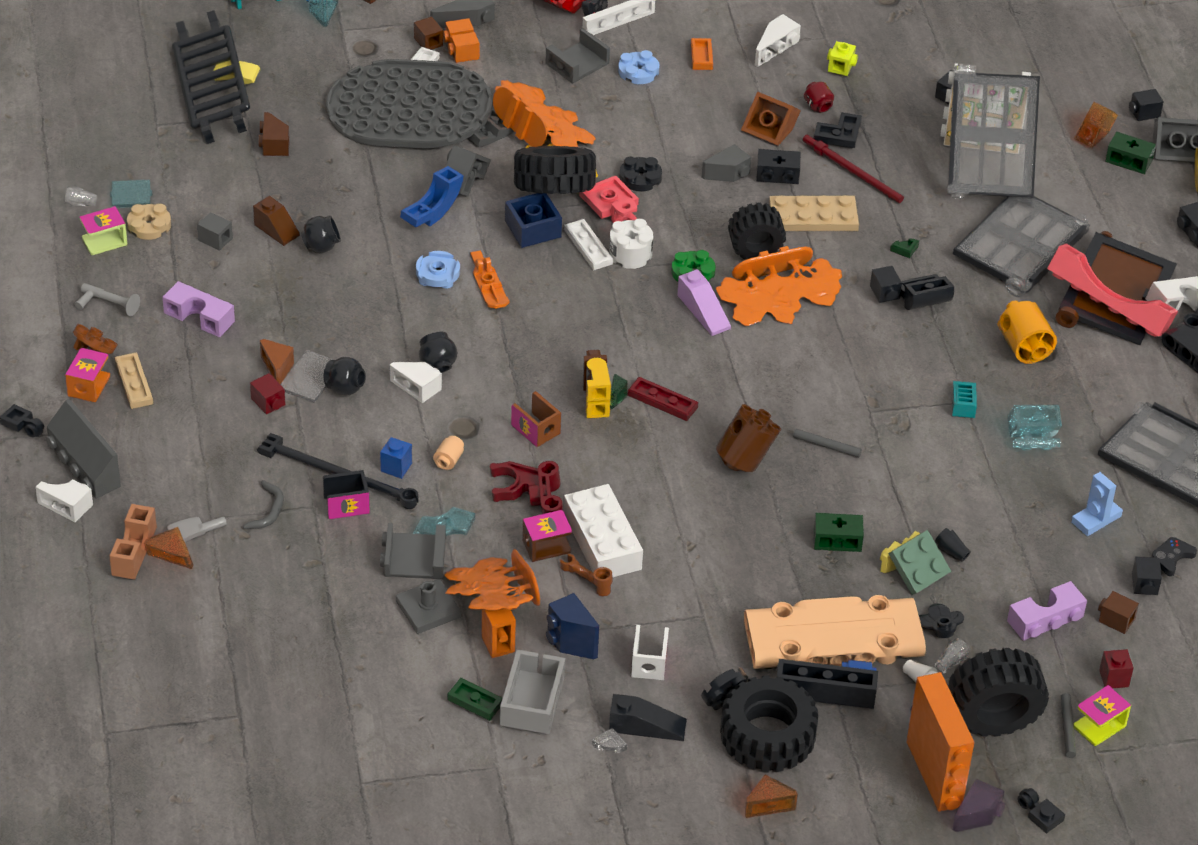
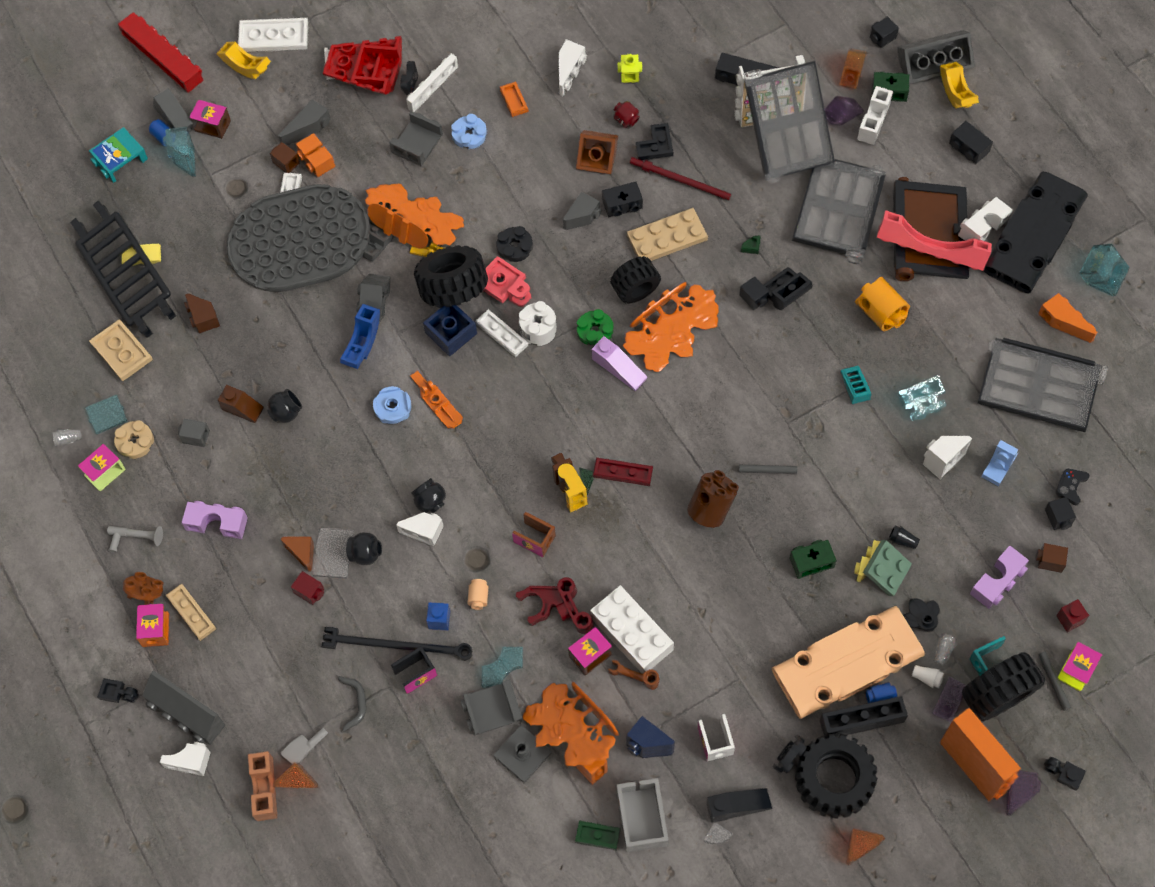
camera: 15 degrees left, 20 degrees up
(174, 143) = (121, 350): none -> tan plate
(1037, 480) = (945, 453): none -> white slope
(1065, 157) = (842, 110): none -> clear purple slope
(1092, 178) = (875, 116): none -> white arch

